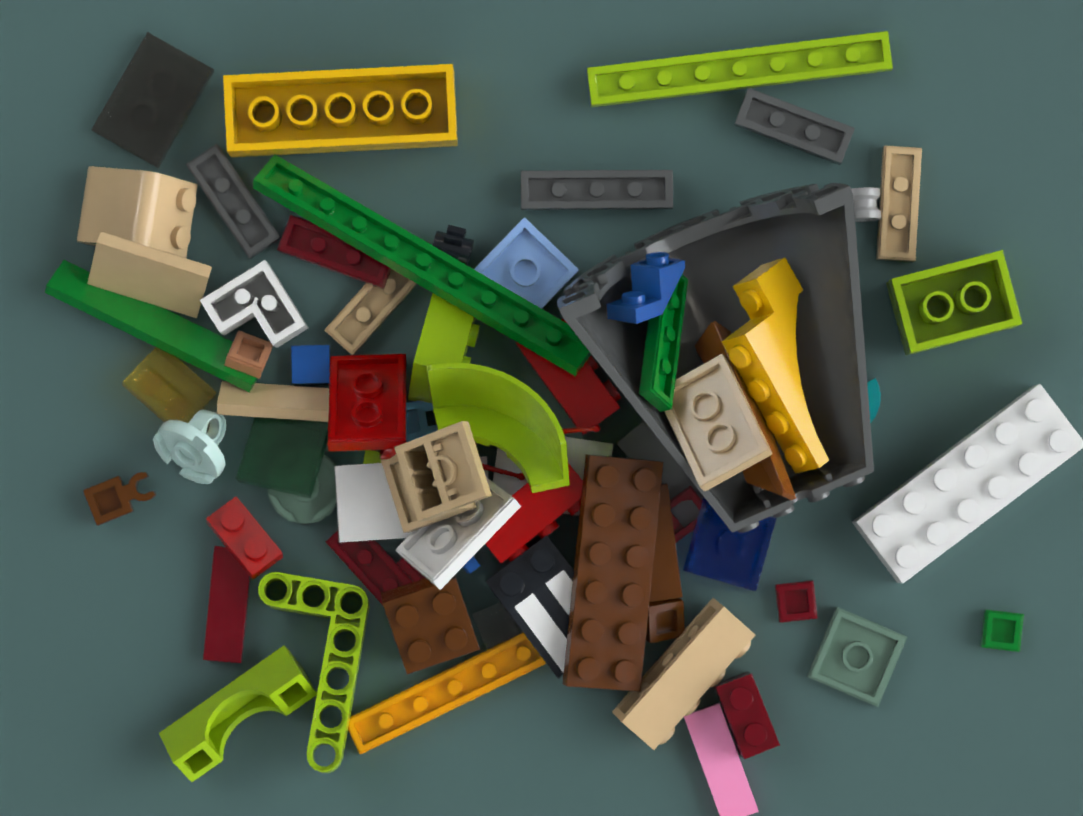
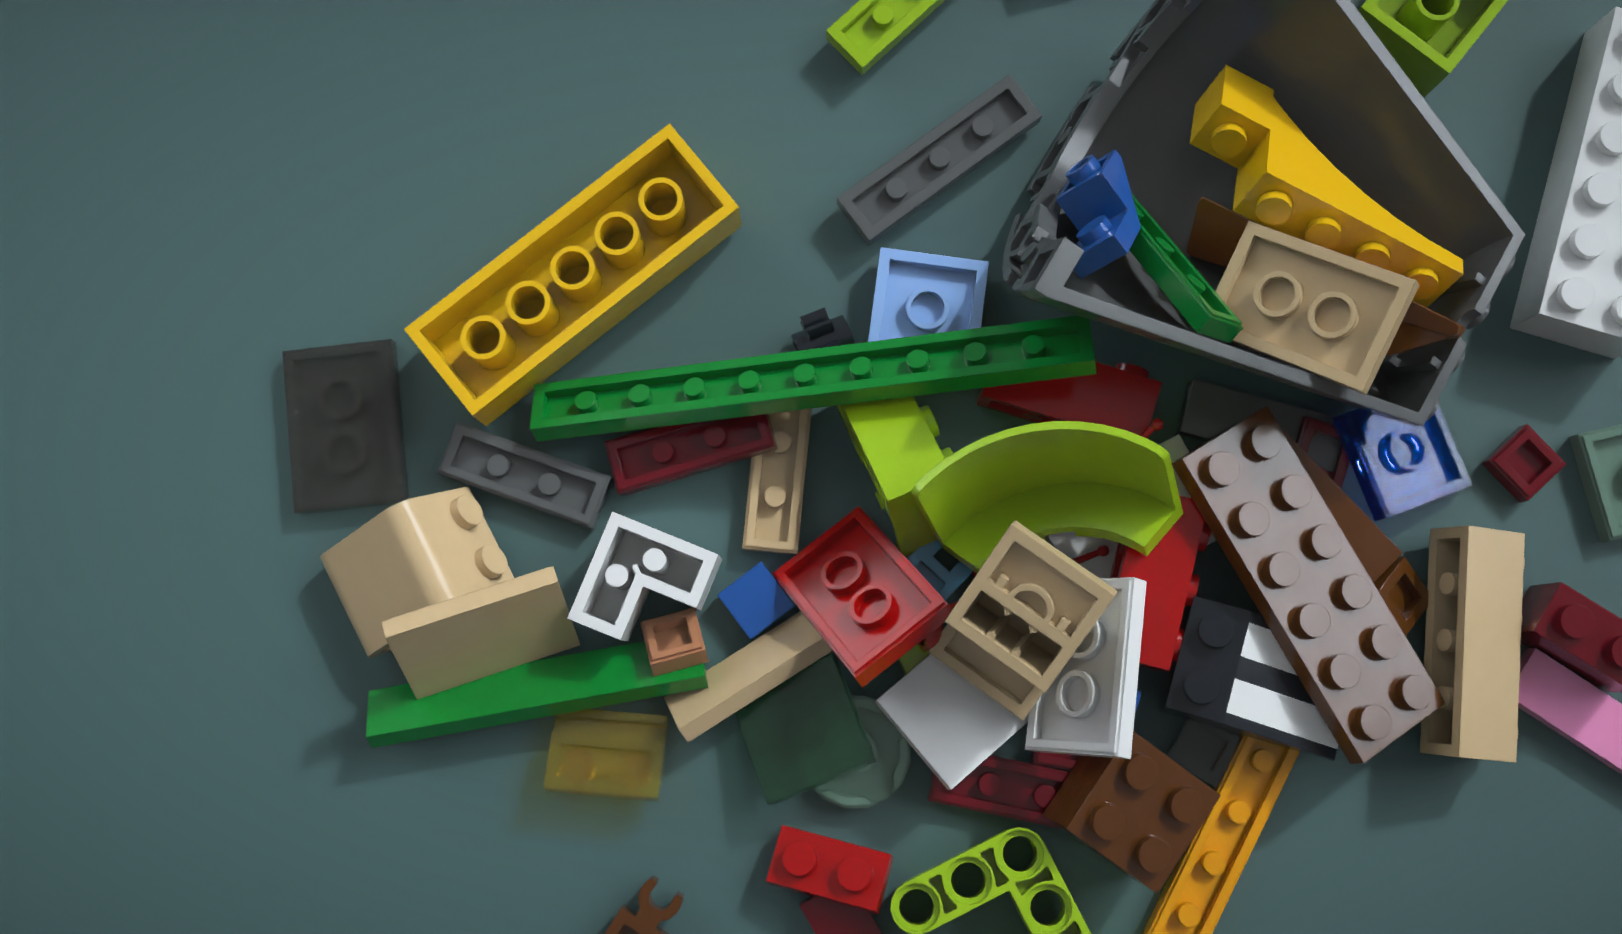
camera: 35 degrees left, 5 degrees down
(192, 447) = (686, 802): light aqua tile -> none

